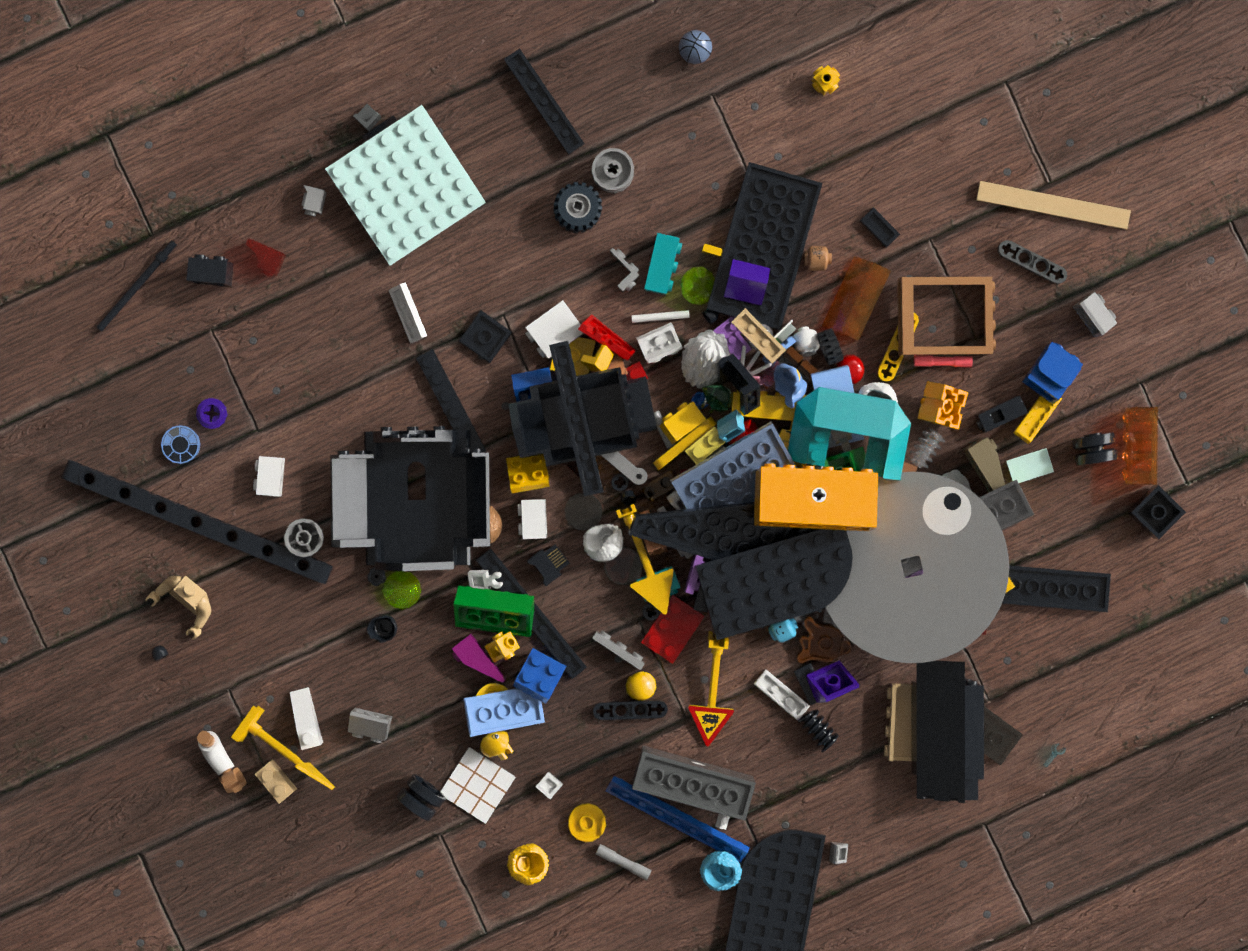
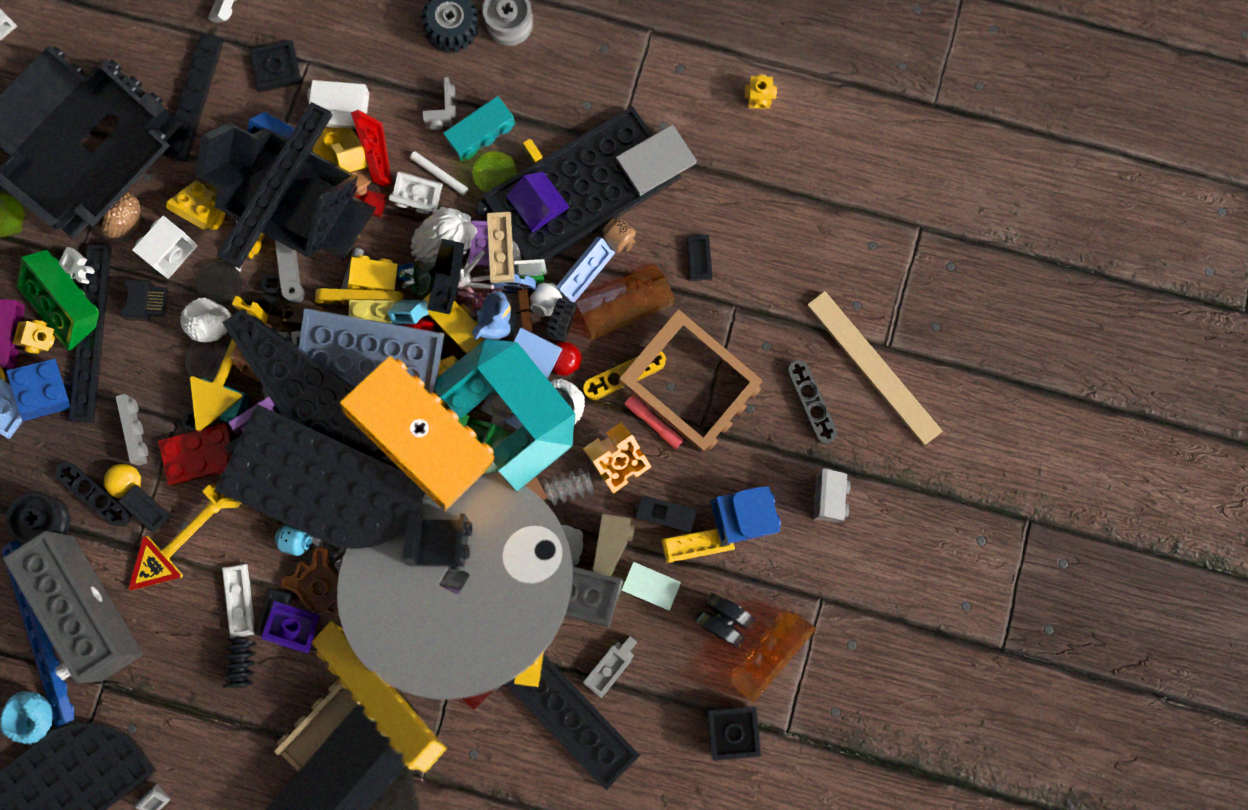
camera: 45 degrees right, 10 degrees down
(612, 764) = (35, 514): none -> black wheel
(672, 689) = (144, 508): none -> black tile
(798, 187) = (656, 160): none -> light grey tile
(814, 300) = (585, 269): none -> light blue plate
(881, 552) = (437, 541): none -> black panel
(932, 674) = (380, 700): none -> yellow brick
(1047, 536) = (610, 667): none -> light grey hinge

